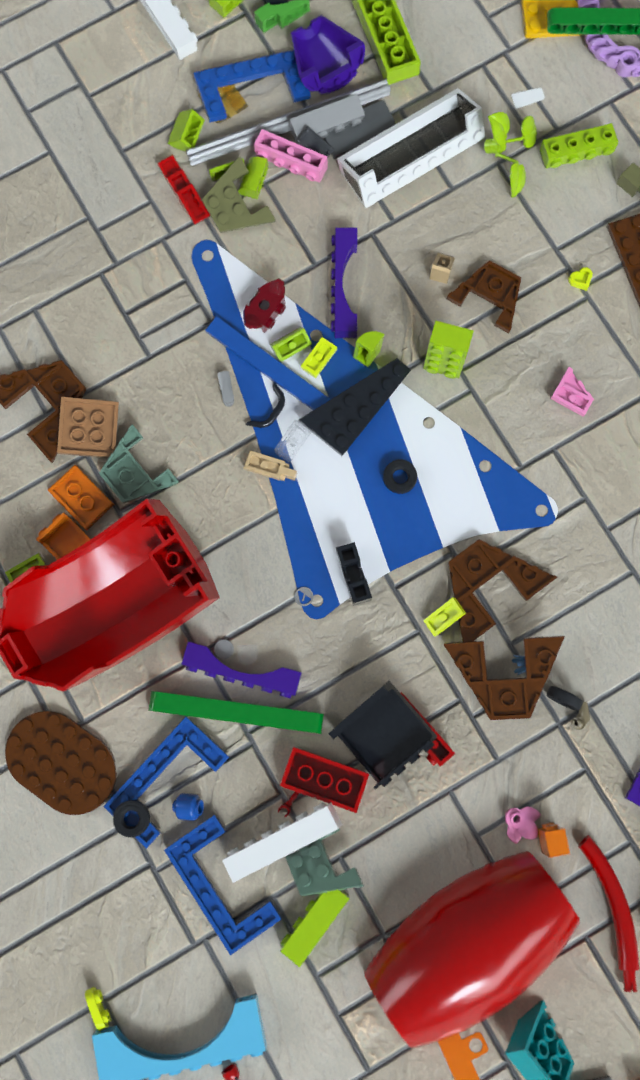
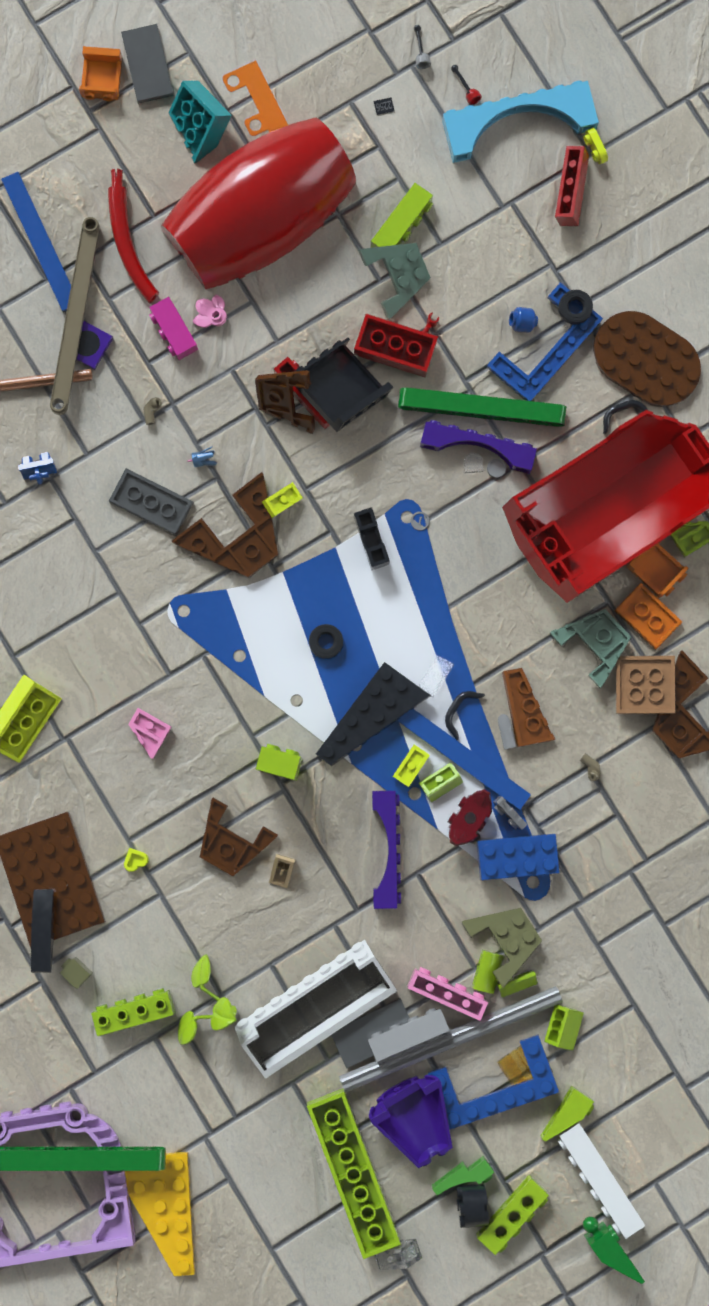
camera: 170 degrees right, 5 degrees up
(90, 711) = (620, 407): none -> black animal
(126, 960) = (572, 186): none -> red brick
(144, 355) = (593, 767): none -> dark tan arm
(183, 189) = (563, 956): red slope -> none
(185, 61) = (569, 1112): none -> lime slope
(206, 406) = (526, 717): none -> dark orange wing
(220, 273) = (517, 856): none -> blue brick
(226, 312) = (514, 819): none -> light grey wing
(232, 935) = (526, 276): blue plate -> none
(269, 467) = (459, 648): tan hinge -> none
(282, 842) = (433, 287): white brick -> none
(313, 141) = (421, 1006): black tile -> none
(331, 1065) = (384, 106): none -> black sticker
(368, 347) = (360, 772): lime brick -> none
(450, 724) = (277, 397): none -> reddish brown wing
(511, 696) = (223, 425): reddish brown wing -> none
(527, 97) = (186, 1076): white sticker -> none
(553, 840) = (183, 294): orange brick -> none
(562, 804) = (172, 328): none -> dark pink brick
(564, 698) = (168, 423): black tyre -> none
(578, 620) = (151, 502): none -> dark grey tile

